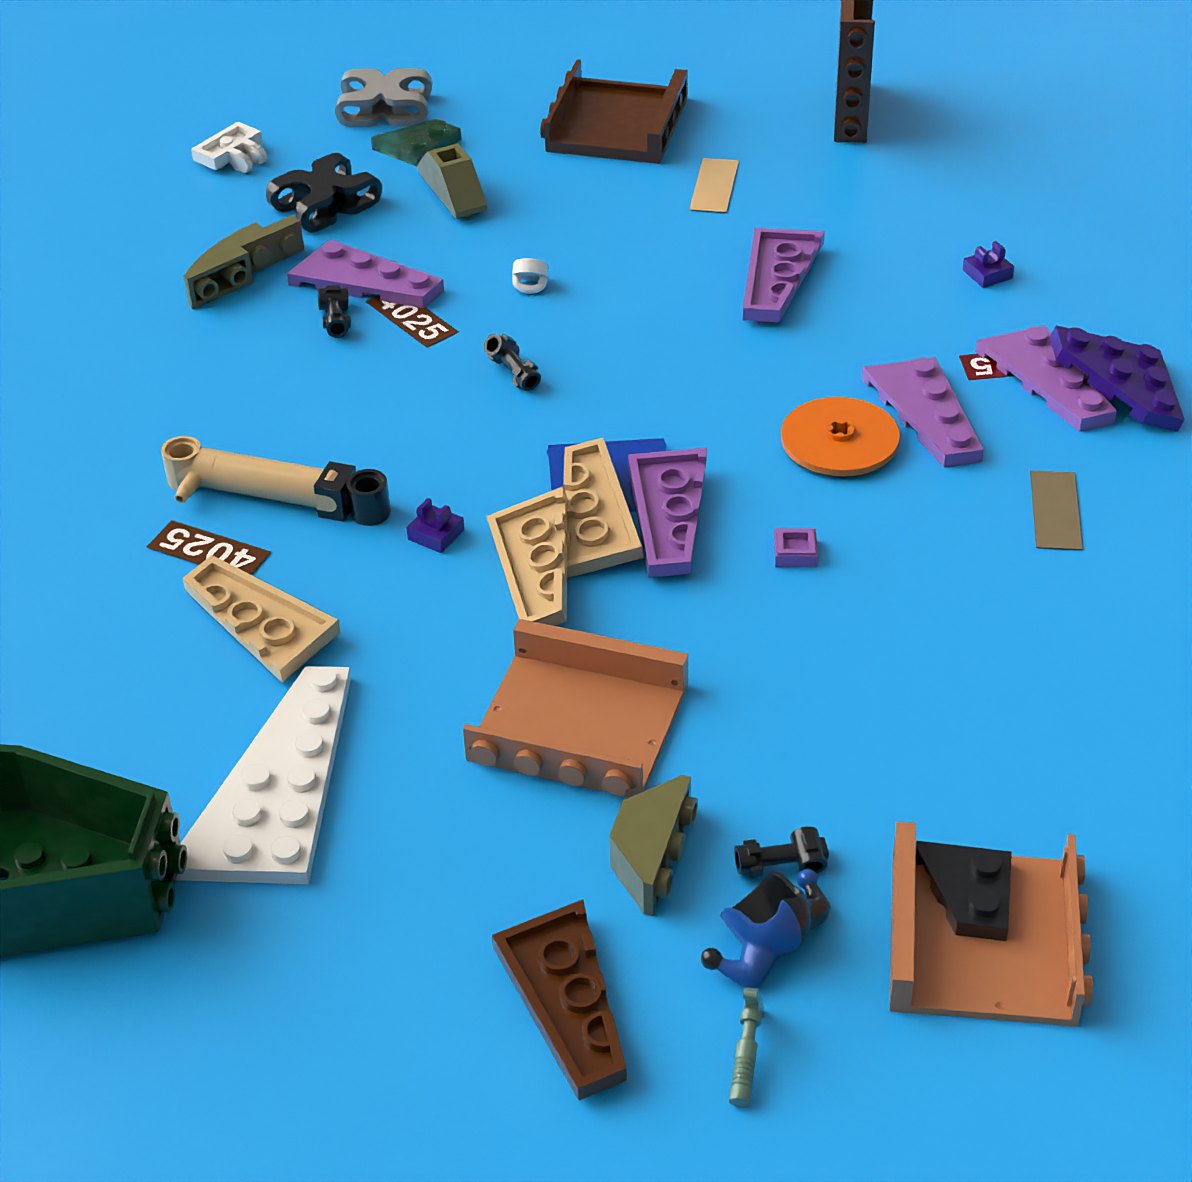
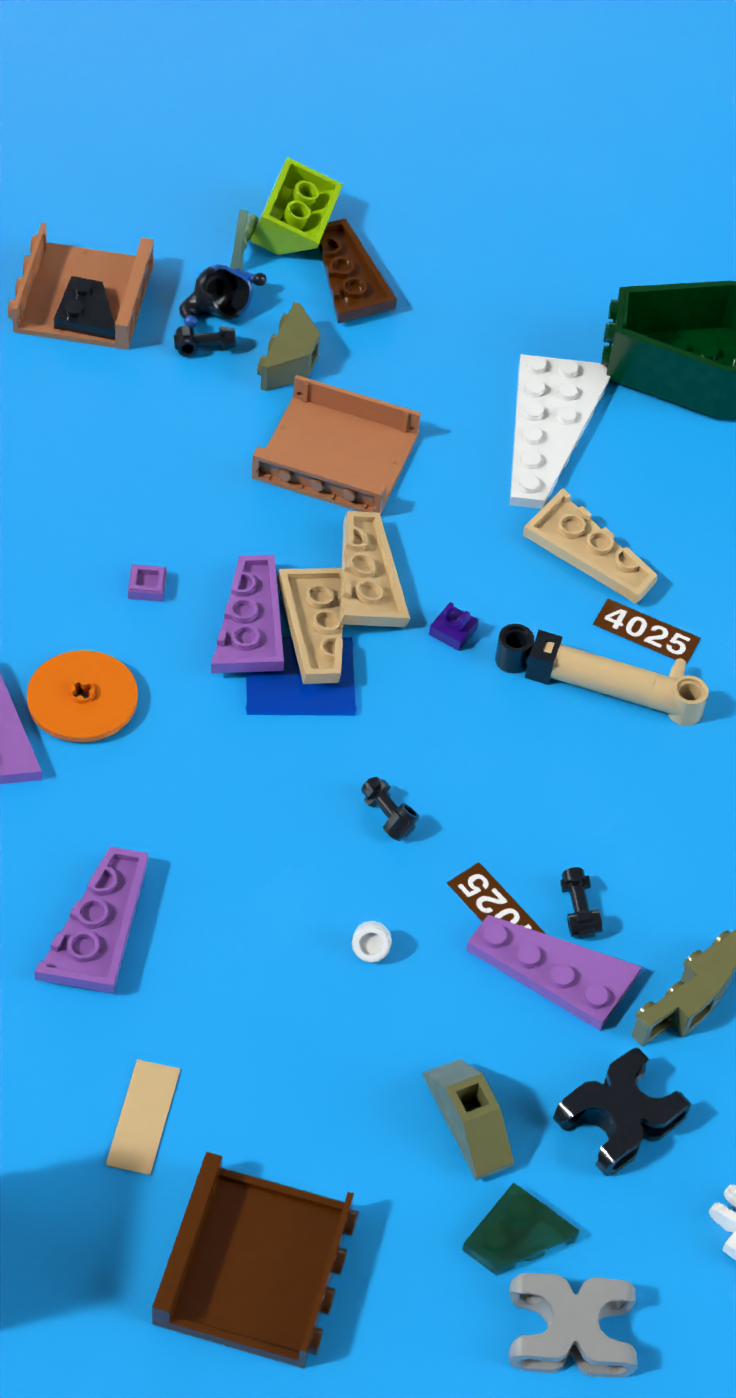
camera: 175 degrees right, 10 degrees up
(664, 1083) = (296, 210): none -> lime slope

